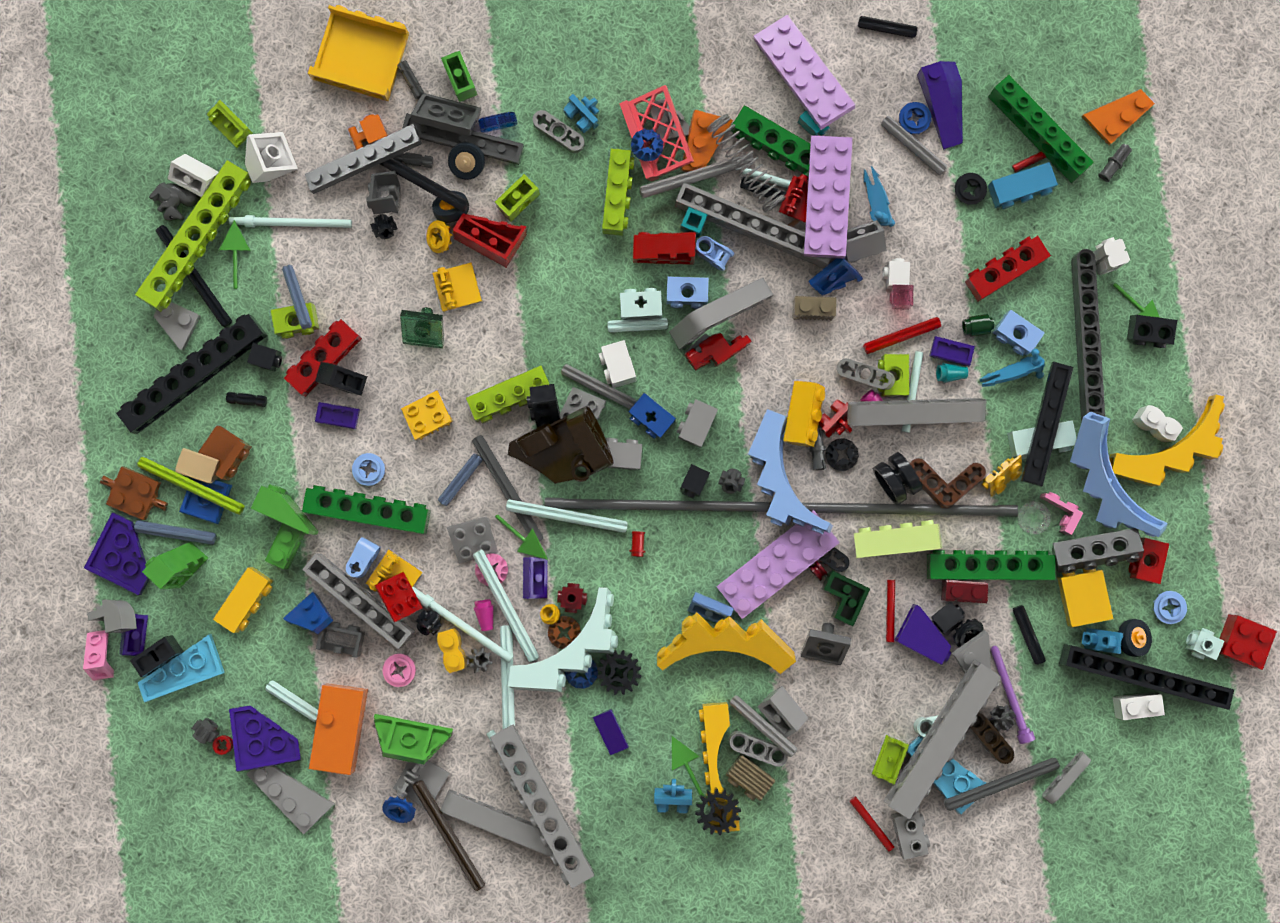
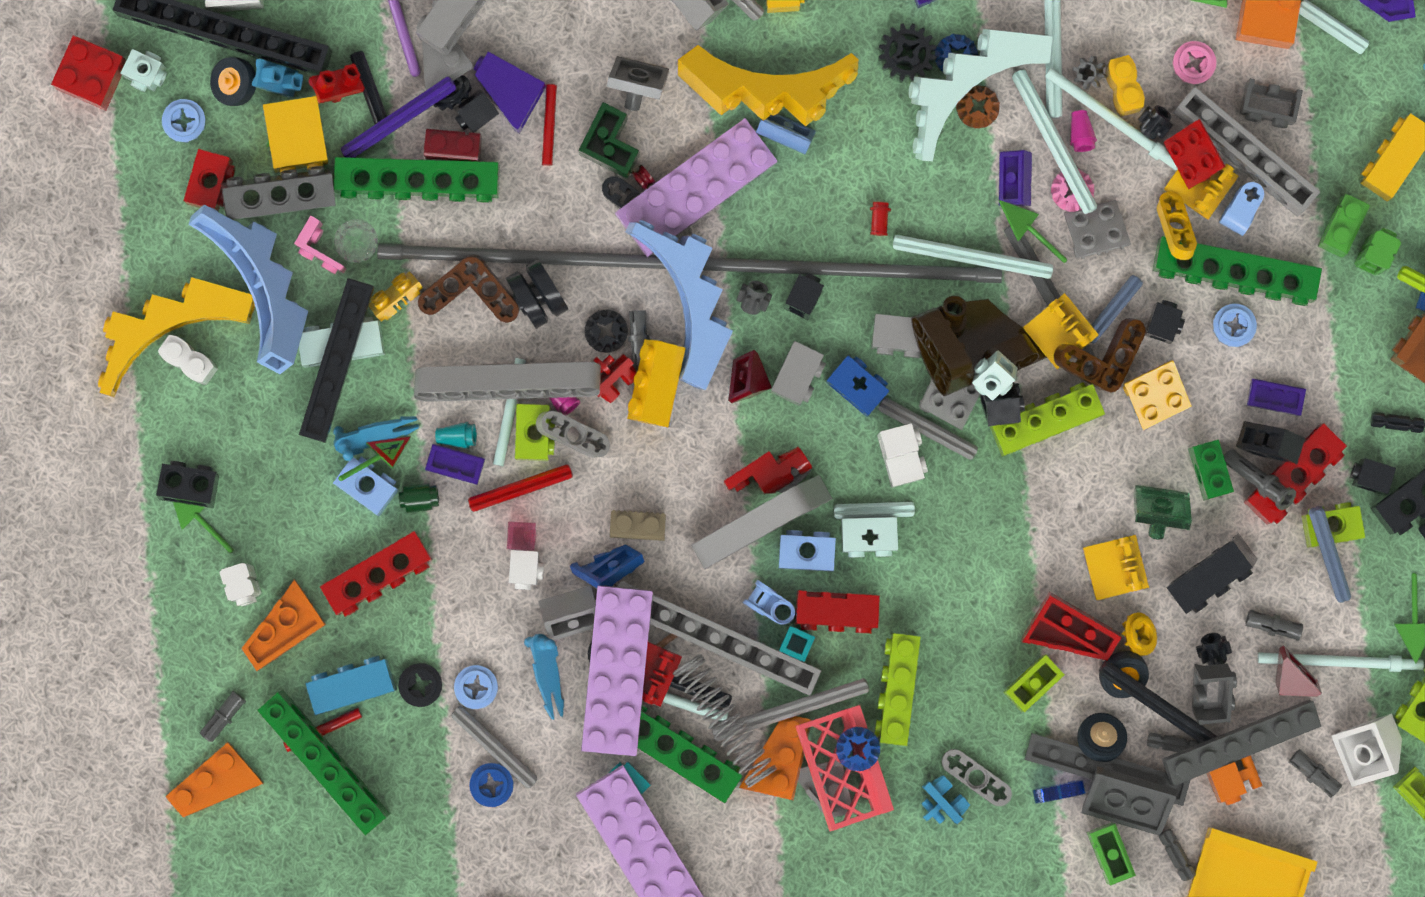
camera: 175 degrees right, 0 degrees up
(257, 526) = (1378, 252): none -> bright green brick
(281, 507) = (1347, 273): bright green slope -> none
(309, 140) = (1315, 773): none -> dark grey pin
(310, 614) = (1310, 135): blue wing -> none
(324, 207) = (1293, 677): none -> slope
(339, 247) = (1274, 625): none -> dark grey pin
(343, 345) = (1267, 485): none -> dark grey pin
(383, 280) = (1213, 575): none -> black wedge
(386, 359) = (1211, 470): none -> green brick
(414, 533) = (1173, 236): none -> yellow beam
(421, 470) = (1165, 322): none -> black brick
(467, 433) = (1102, 368): none -> reddish brown beam
(499, 460) = (1060, 325): none -> yellow hinge
(545, 614) = (1002, 130): yellow plate -> none
(549, 420) = (994, 375): none -> light aqua brick
(572, 588) = (963, 159): dark red brick -> none
(735, 419) = (747, 377): none -> dark red slope
(897, 540) = (536, 214): yellowish green wedge -> none
(936, 182) = (465, 695): none -> light blue gear
(943, 95) = (450, 813): dark purple wedge -> none
(1004, 360) = (387, 450): none -> piece
(1007, 611) = (398, 118): none -> dark purple axle
(1056, 636) = (336, 84): none -> red hips
(1072, 229) = (284, 627): none -> orange wing
(1092, 331) = (267, 487): dark grey beam -> none

